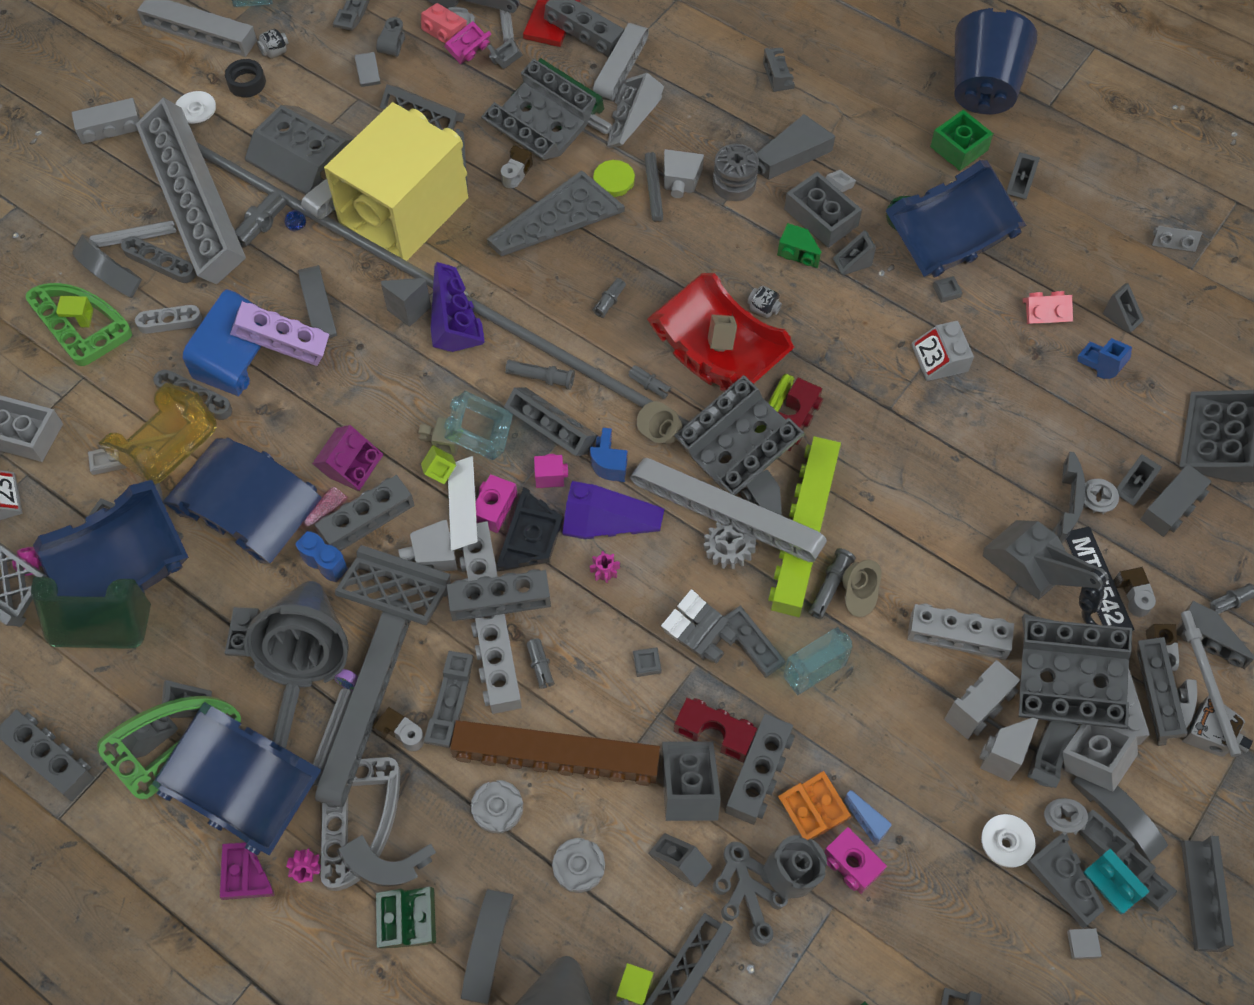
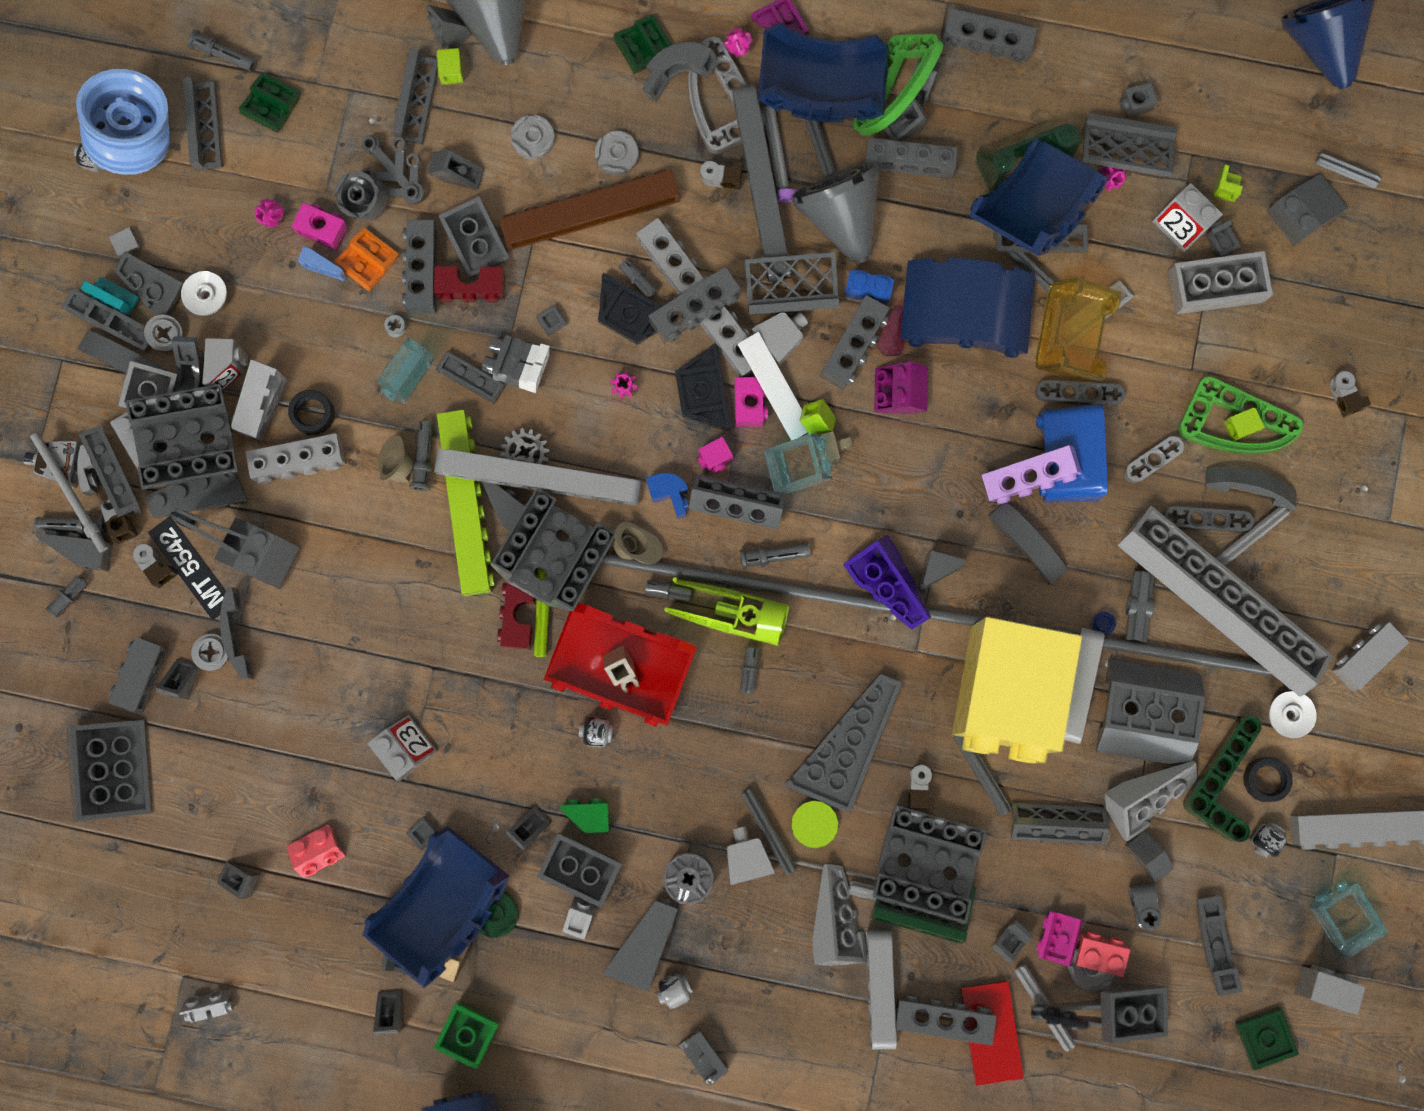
camera: 155 degrees right, 20 degrees up
(205, 661) = (911, 158): none -> dark grey brick
(239, 624) = (892, 193): dark grey slope -> none
(285, 91) = (1220, 779): none -> dark green beam
(353, 99) = (1140, 798): none -> light grey wedge
(450, 699) = (695, 213): dark grey slope -> none
(486, 946) = (573, 52): dark grey slope -> none
(565, 635) = (626, 311): none -> black wing
(599, 337) = (769, 620): none -> lime piece
(601, 512) = (648, 437): dark purple wedge -> none
(782, 112) = (674, 990): none -> light grey head
(810, 715) = (392, 320): none -> light grey bush
(906, 899) = (269, 213): none -> dark pink gear
(938, 654) = (304, 396): none -> black tyre
(1107, 359) = (242, 806): blue brick -> none
(1207, 895) = (37, 319): dark grey fence -> none
(1216, 663) = (73, 525): none -> dark grey pin

